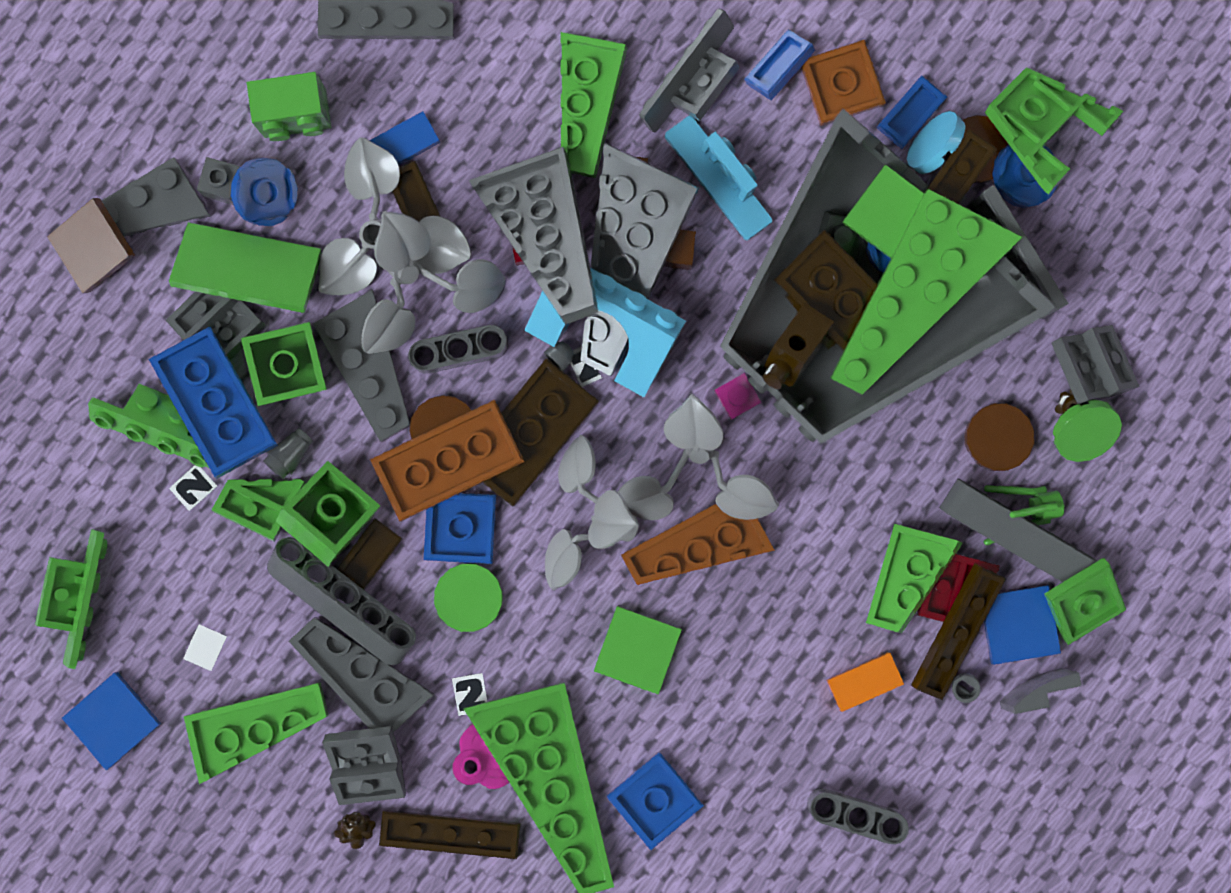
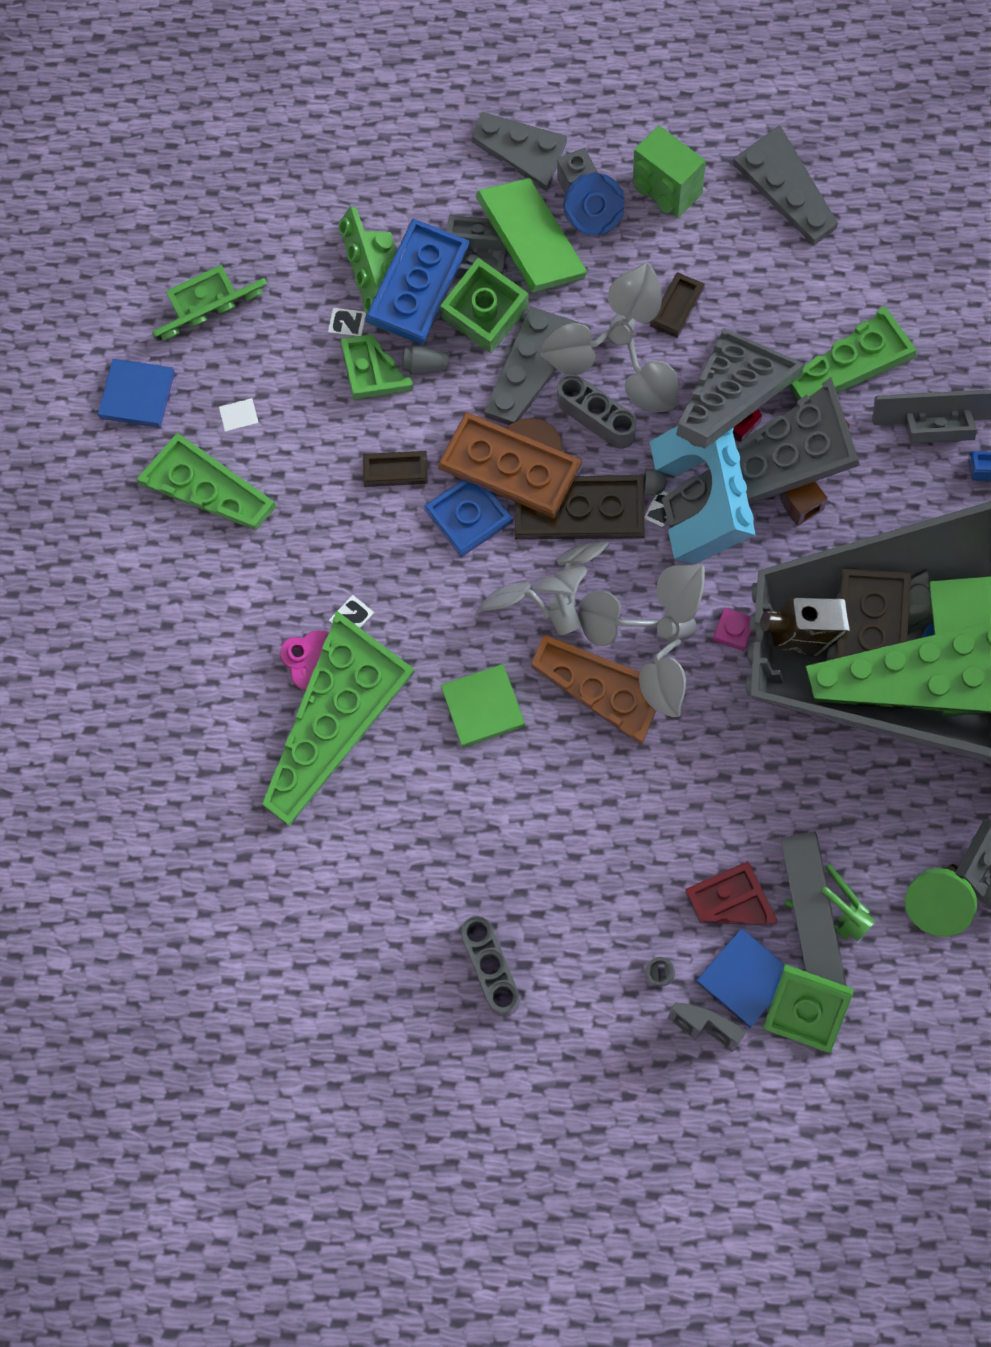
camera: 60 degrees right, 15 degrees down
(91, 245) = (460, 131): tile -> none
(327, 513) = (402, 410): bright green brick -> none
(344, 264) = (662, 341): light grey plant -> none
(349, 615) = (346, 471): dark grey beam -> none
(354, 829) = (186, 609): dark brown plant -> none
(365, 683) = (300, 536): dark grey wing -> none
(365, 765) = (239, 579): dark grey slope -> none
(408, 138) = (709, 267): blue tile -> none
(449, 834) = (235, 680): dark brown tile -> none
(468, 597) = (422, 558): bright green tile -> none
(654, 800) = (378, 807): blue tile -> none
(721, 175) = (885, 484): medium azure bracket -> none
(865, 682) = (599, 893): orange tile -> none
(908, 575) = (709, 856): bright green wing -> none
(958, 631) = (699, 928): dark brown tile -> none
(999, 437) = (876, 845): reddish brown tile -> none

